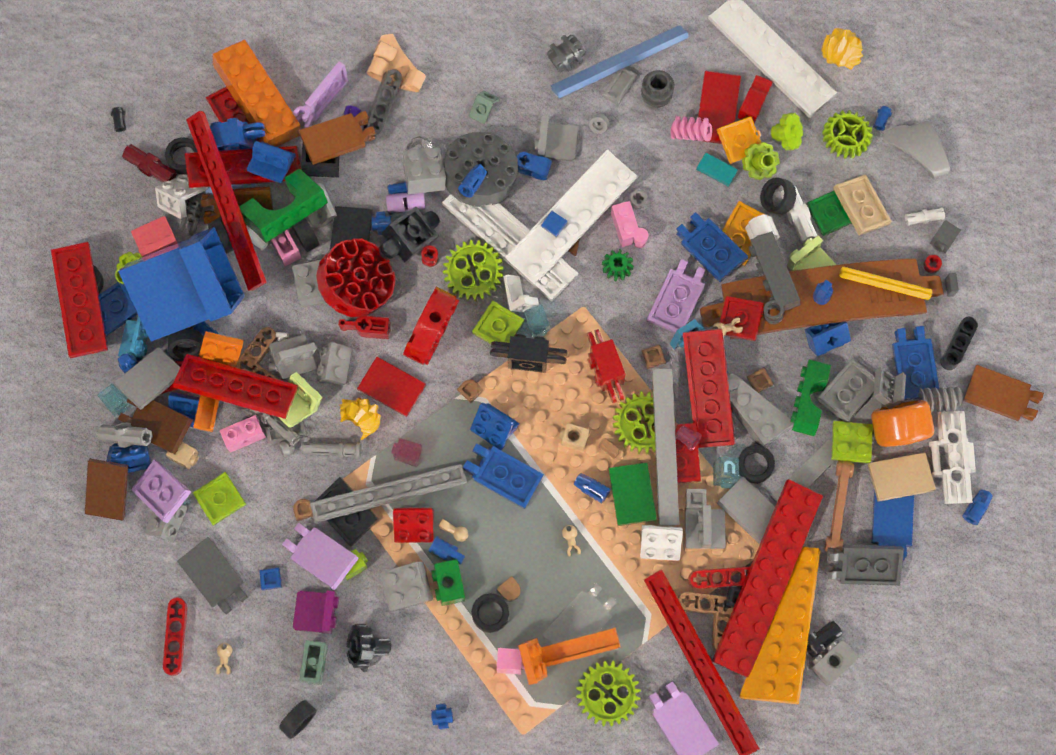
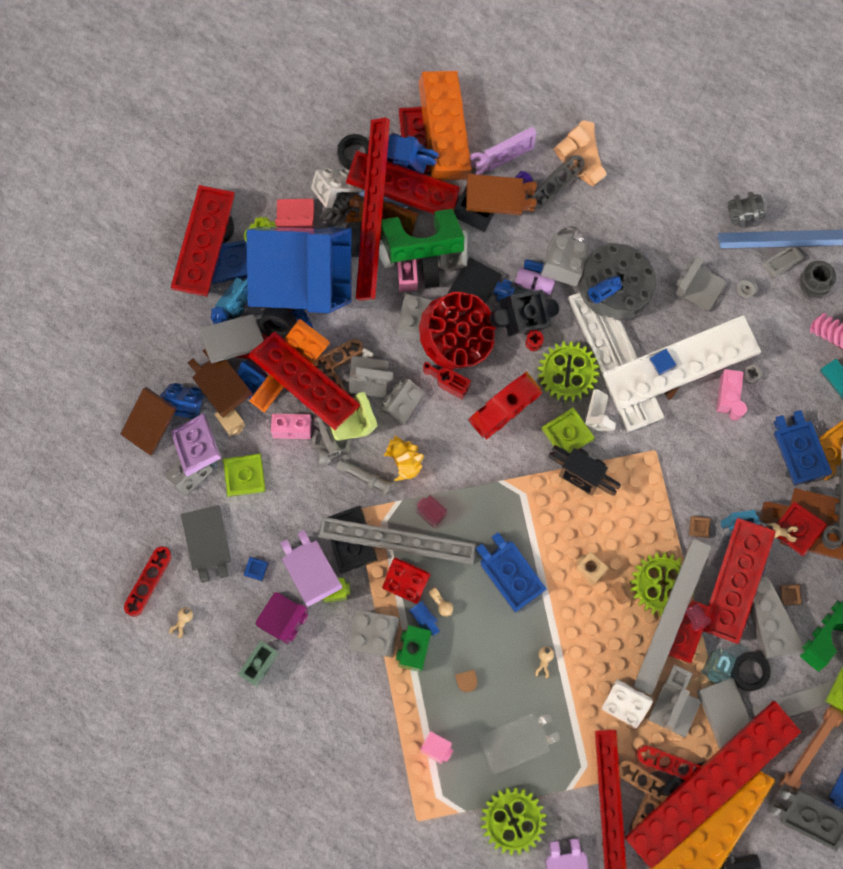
camera: 25 degrees right, 0 degrees up
(113, 400) = (192, 344): clear light blue brick -> none
(118, 119) = (314, 90): black pin -> none
(124, 434) = (187, 379): light grey piece -> none
(148, 164) = (320, 146): dark red piece -> none
(270, 161) = (429, 191): blue bracket -> none
(297, 719) = (220, 708): black tyre -> none
(302, 509) = (313, 519): medium nougat tile -> none
(364, 646) = (311, 671): black piece -> none
(391, 386) = (445, 444): red tile -> none
(442, 716) = (351, 768): blue gear -> none
(469, 389) = (515, 480): medium nougat tile -> none
(475, 612) = (436, 679): black tyre -> none
(482, 106) = (646, 225): sand green bracket -> none
(493, 425) = (521, 522): blue bracket -> none
(535, 165) = (669, 301): blue piece -> none
(537, 321) = (605, 445): clear light blue brick -> none
(538, 658) = (463, 757): orange bracket -> none
(592, 487) = (586, 622): blue hinge -> none
(606, 365) = (651, 515): red brick -> none
(610, 261) = (708, 420): green gear -> none
(632, 494) = (621, 646): green tile -> none
(677, 298) = (746, 482): lavender tile -> none

